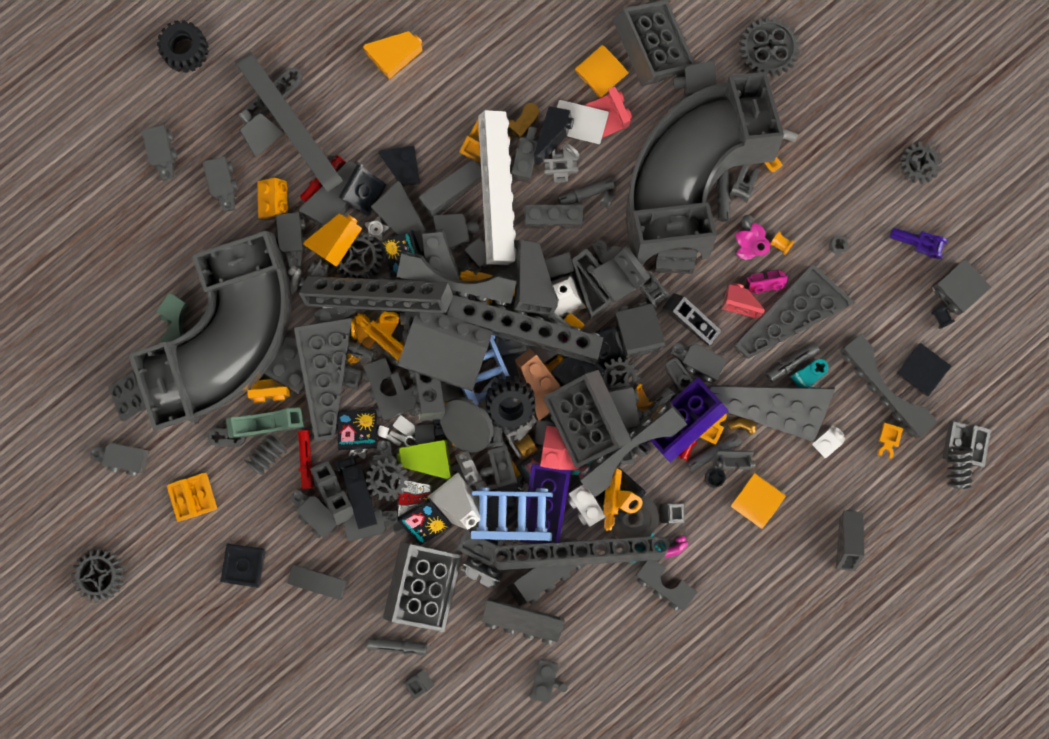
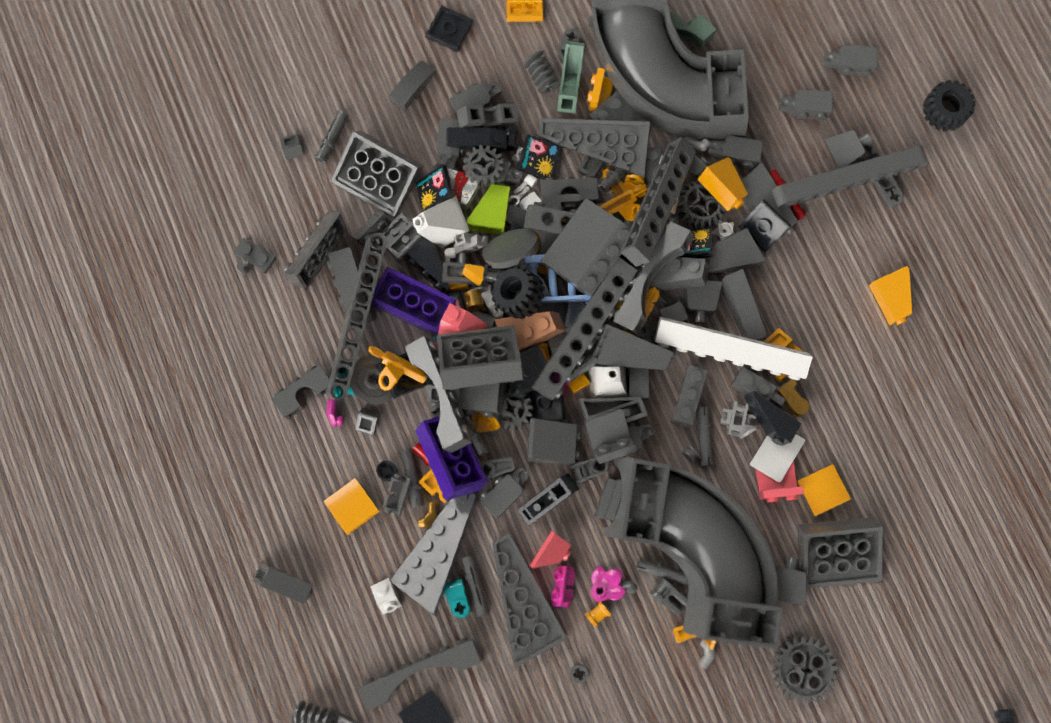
camera: 100 degrees right, 5 degrees down
(272, 198) = (780, 146): light orange bracket -> none
(305, 459) = (548, 110): red pin -> none
(402, 164) = (780, 272): black wing -> none
(501, 452) = (474, 273): none -> light orange slope
(521, 532) = (400, 250): light blue fence -> none
(587, 506) = (397, 340): white brick -> none
(889, 436) = (369, 658): light orange plate -> none

